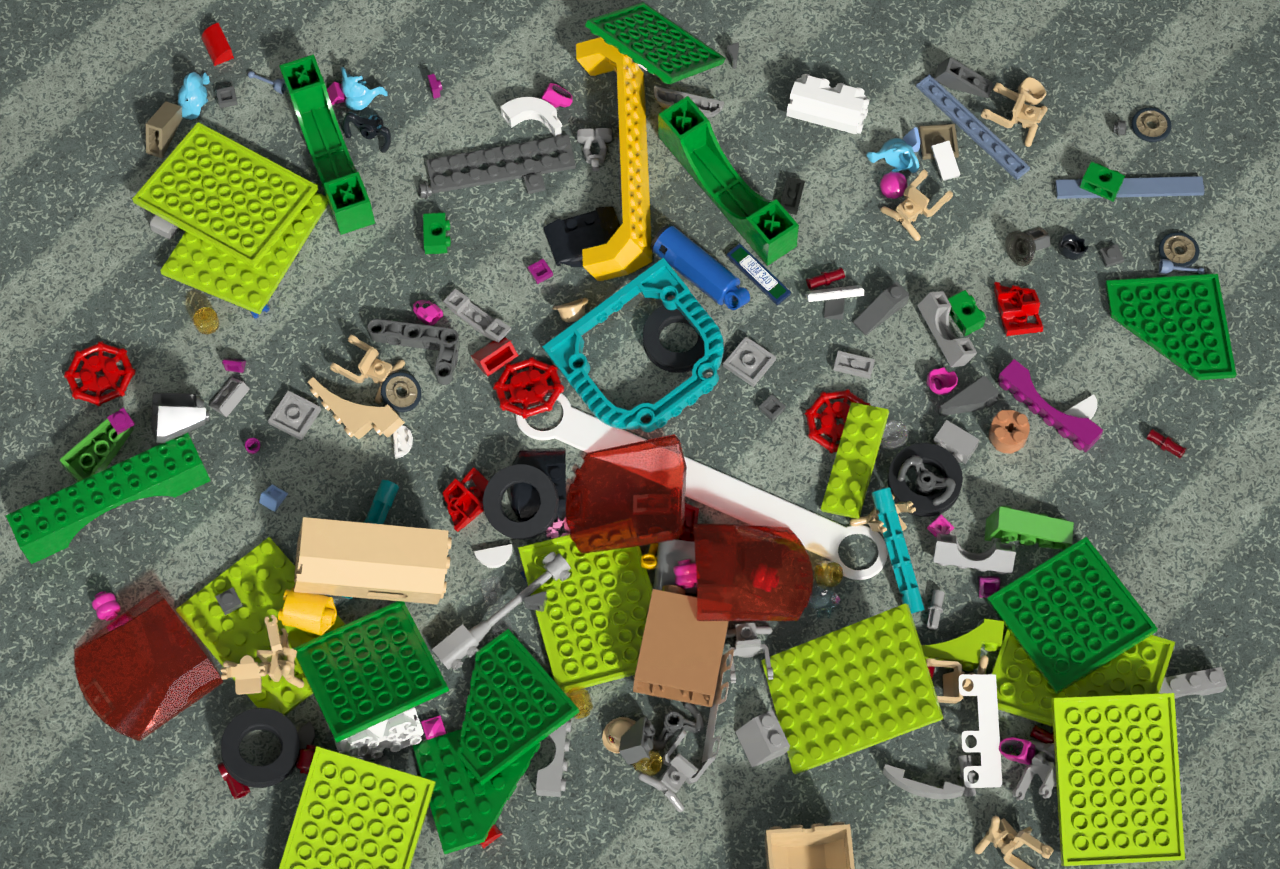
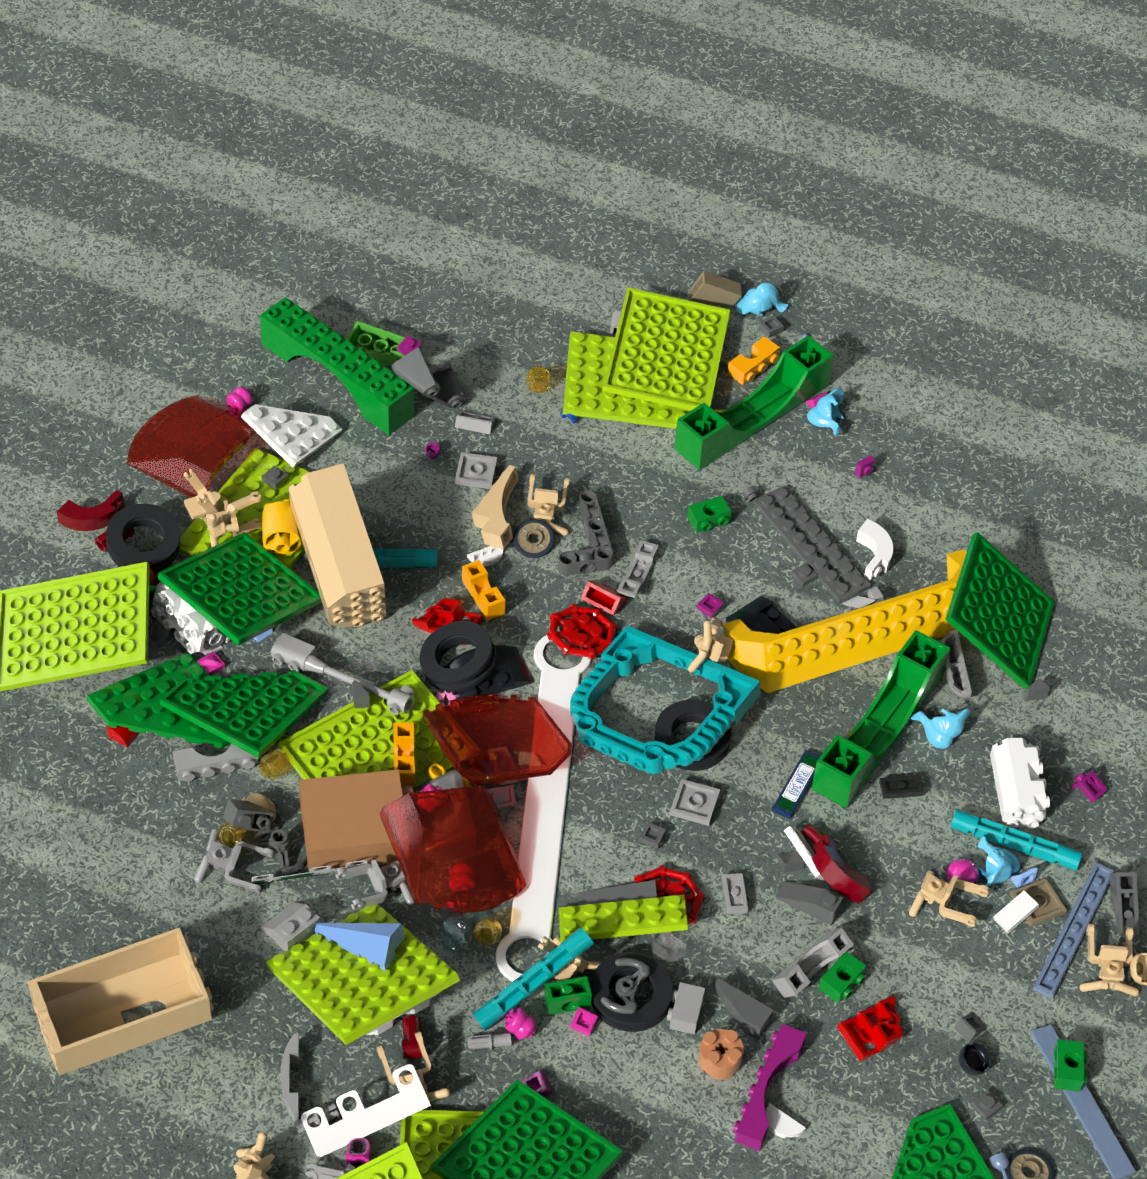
camera: 65 degrees right, 15 degrees down
(95, 364) = (456, 340): red plate -> none
(178, 567) = (291, 432): none -> white plate
(203, 796) = (90, 518): none -> dark red arch
(216, 44) = (821, 303): red brick -> none
(234, 365) = (507, 414): magenta slope -> none
(261, 115) = (745, 369): none -> light orange arch
(272, 497) = (390, 481): light blue slope -> none
(368, 128) = (792, 431): black piece -> none
(427, 312) = (624, 534): dark pink rock -> none
(437, 458) = (487, 598): none -> light orange arch
(494, 556) = (399, 659): white tile -> none
(557, 96) = (907, 561): dark pink rock -> none
(572, 311) = (678, 638): tan hat -> none
(587, 151) = (858, 602): none -> white sticker
(605, 283) = (711, 644): none -> tan piece
(632, 587) = (404, 752): none -> light orange arch
(699, 268) = (775, 726): blue piece -> none
(748, 139) = (943, 729): none -> medium azure piece
(825, 457) = (619, 893): none -> dark grey sticker
(830, 668) = (368, 940): none -> wedge
(840, 56) = (1090, 785): none -> magenta bracket
(865, 277) = (837, 873): none -> dark red arch
(876, 132) = (1016, 839): none -> teal piece
(917, 531) = (567, 995): none -> green brick
(930, 578) = (520, 1023): none -> dark pink piece
(947, 379) = (751, 970): dark pink hair -> none
(967, 647) = (452, 1074): lime arch -> none
(997, 558) = (558, 1032): arch -> none
(1020, 248) = (948, 1009): clear smoke hat -> none
(1029, 528) = (615, 1100): bright green wedge -> none

